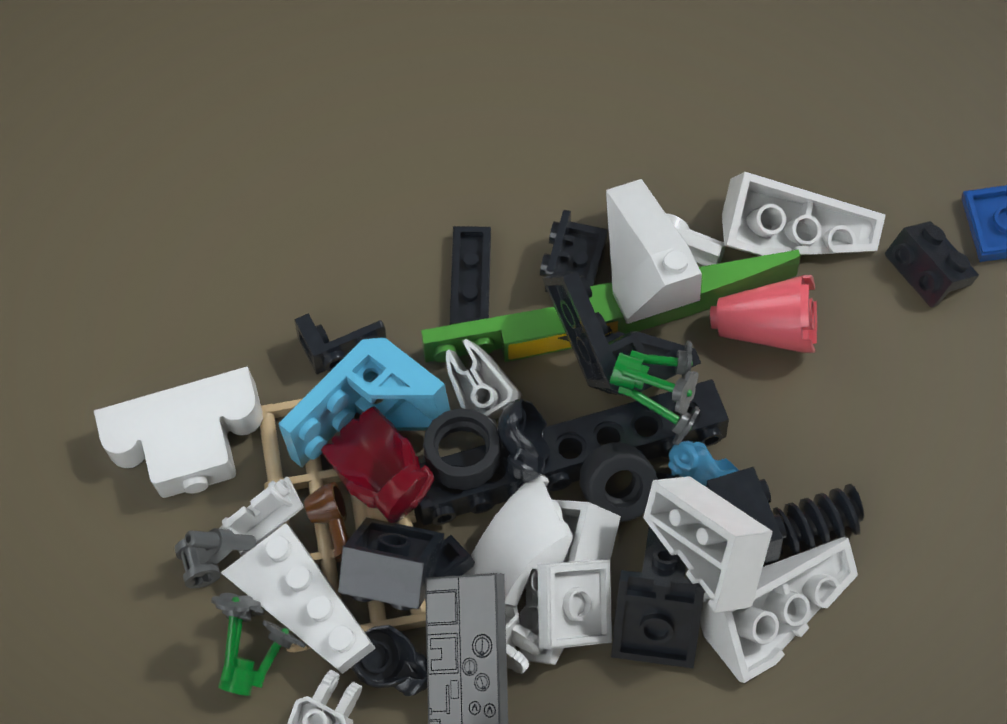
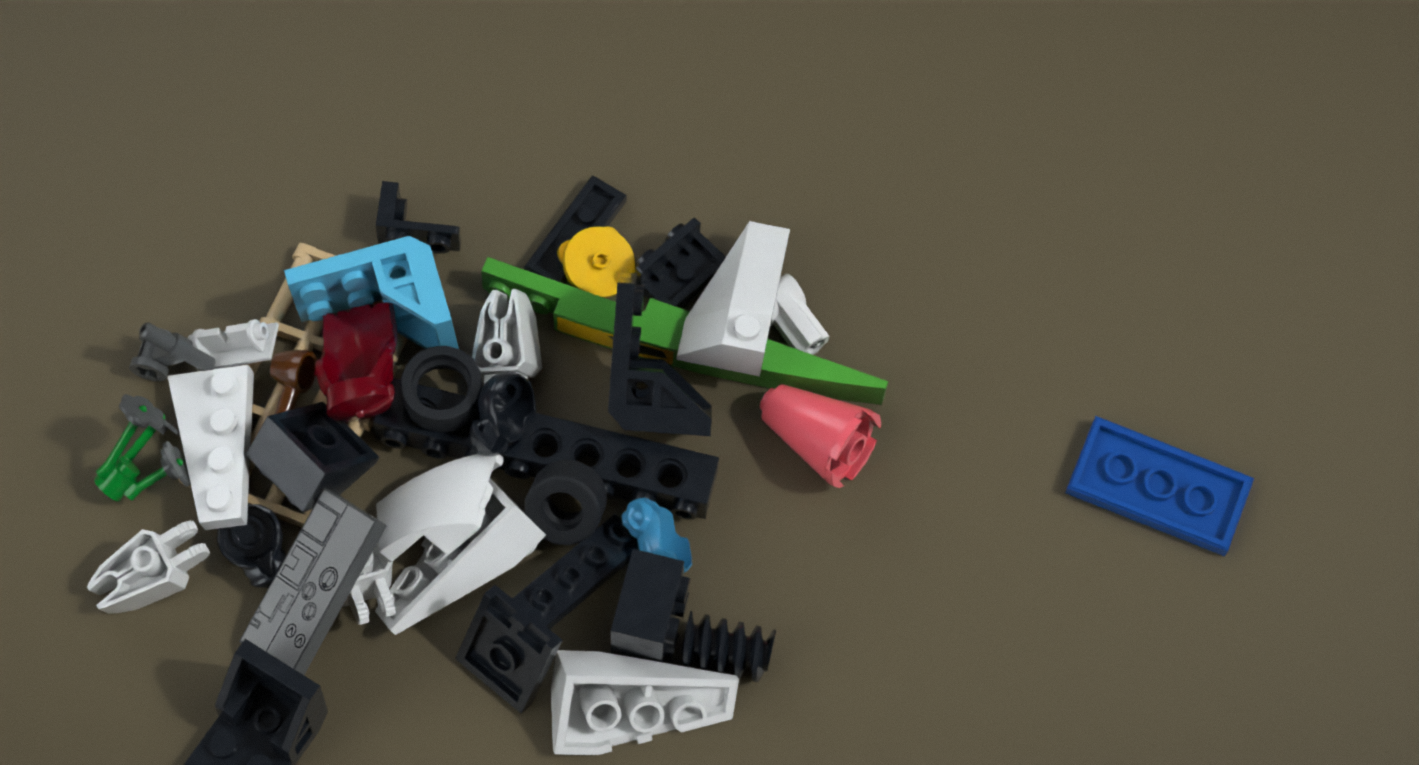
camera: 25 degrees right, 5 degrees up
(183, 431) = (219, 228): white brick -> none
(453, 559) = (372, 487): black tile -> none
(506, 287) = (595, 260): none -> yellow piece
(574, 603) = (443, 589): white tile -> none
(631, 373) = (628, 413): plant -> none
(712, 539) = (592, 604): white wedge -> none
(778, 218) = (895, 343): white wedge -> none
(930, 262) = (1014, 465): black bracket -> none

